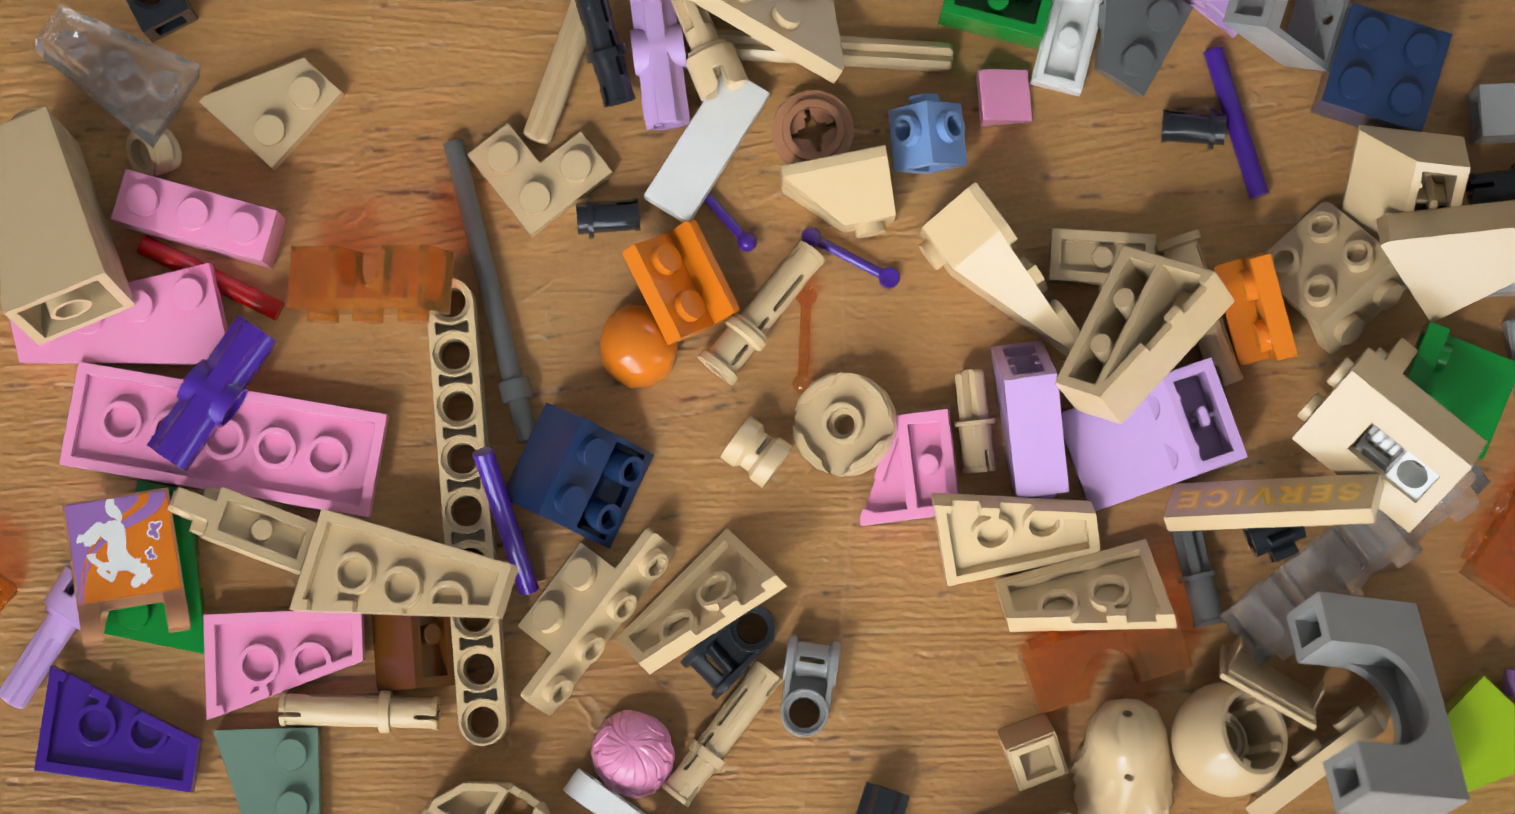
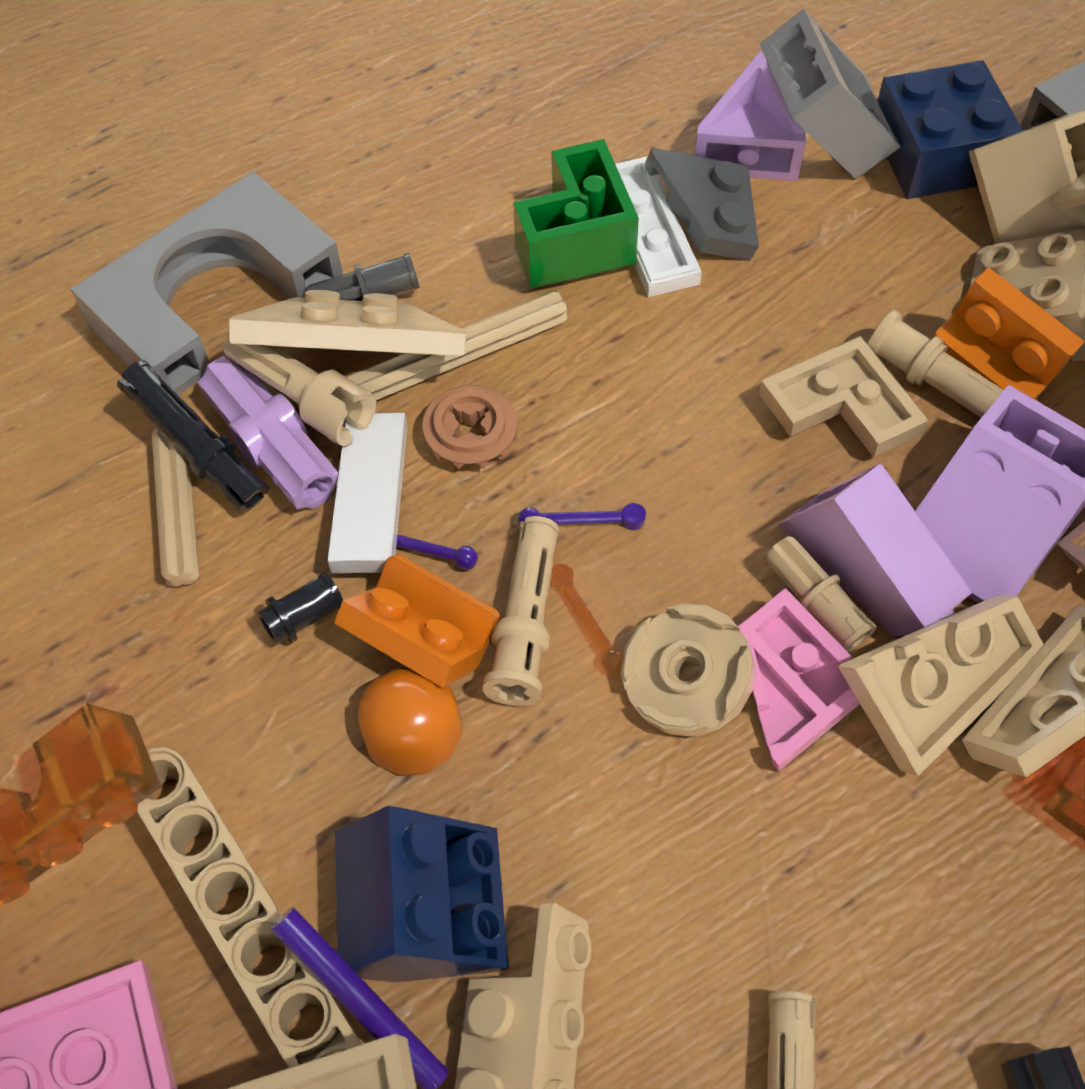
camera: 30 degrees left, 25 degrees down
(515, 388) = (287, 842): dark grey bar -> none
(537, 190) = (204, 628): tan plate -> none
(699, 602) = (658, 960): tan wing -> none
(729, 653) = (728, 1005): black piece -> none
(744, 448) = (612, 751): tan wheel -> none
(808, 680) = (846, 972): light grey piece -> none
(845, 190) = (532, 441): tan slope -> none
(927, 135) = (586, 364): medium blue brick -> none
(979, 253) = (726, 432): tan wedge -> none
(1003, 97) = (630, 312): bright pink slope -> none
(1139, 332) = (929, 388): tan wedge -> none
(1193, 127) = (822, 247): black pin -> none
(1236, 122) = (855, 232): dark purple bar -> none

